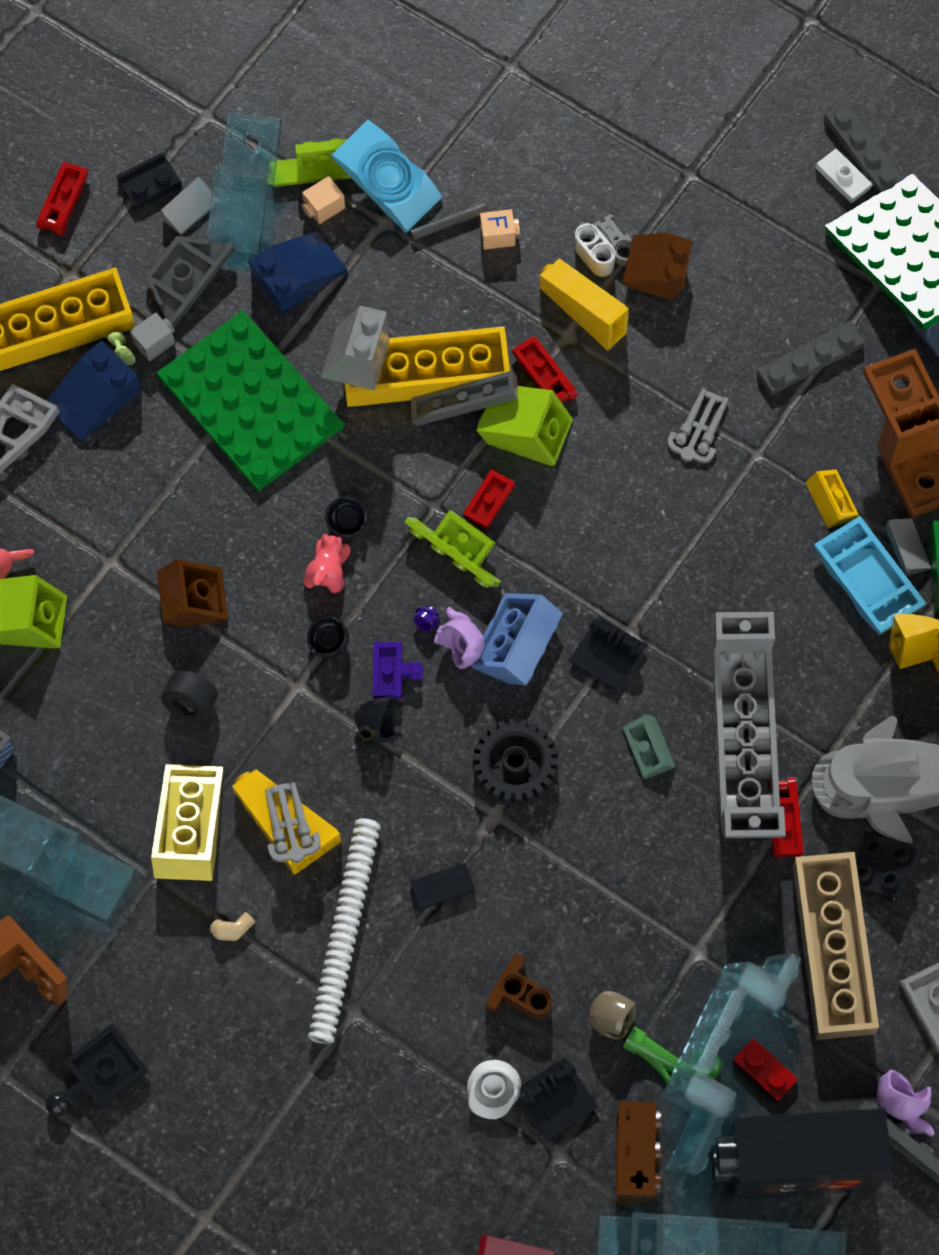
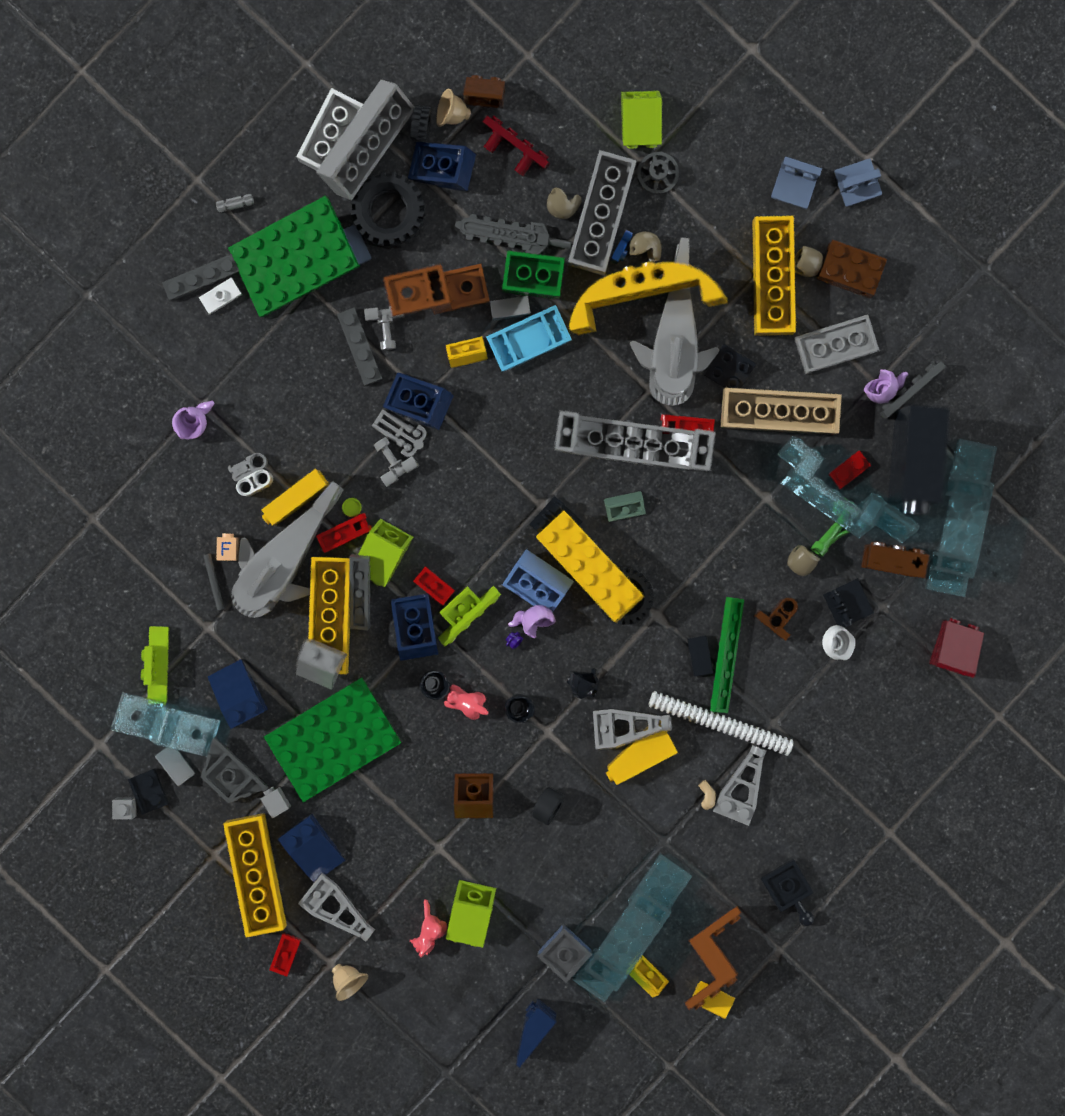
camera: 85 degrees left, 20 degrees up
(62, 198) = (154, 854): red plate -> none
(118, 340) = (287, 825): yellowish green piece -> none
(122, 151) = (124, 808): none -> light grey brick
(187, 823) = (633, 816): light yellow slope -> none
(217, 969) = (732, 807): none -> light grey plate
(296, 853) = (671, 749): light grey piece -> none
(314, 761) = (605, 730): none -> light grey plate
(323, 200) = (185, 669): light nougat brick -> none
(387, 175) = (175, 622): medium azure slope -> none
(390, 669) = (547, 669): dark purple plate -> none
(424, 480) = (414, 627): none -> dark blue slope
(449, 923) = (727, 655): none -> green plate
(485, 289) = (269, 572): none -> light grey animal
(551, 699) = (590, 566): none -> yellow brick
(583, 380) = (351, 507): none -> lime piece
(650, 427) = (396, 468): none -> light grey bar
(657, 264) = (274, 441): reddish brown slope -> none
(665, 159) = (191, 421): none -> lavender hair
(749, 443) = (418, 400): none -> dark blue slope
(856, 384) = (384, 317): none -> light grey bar

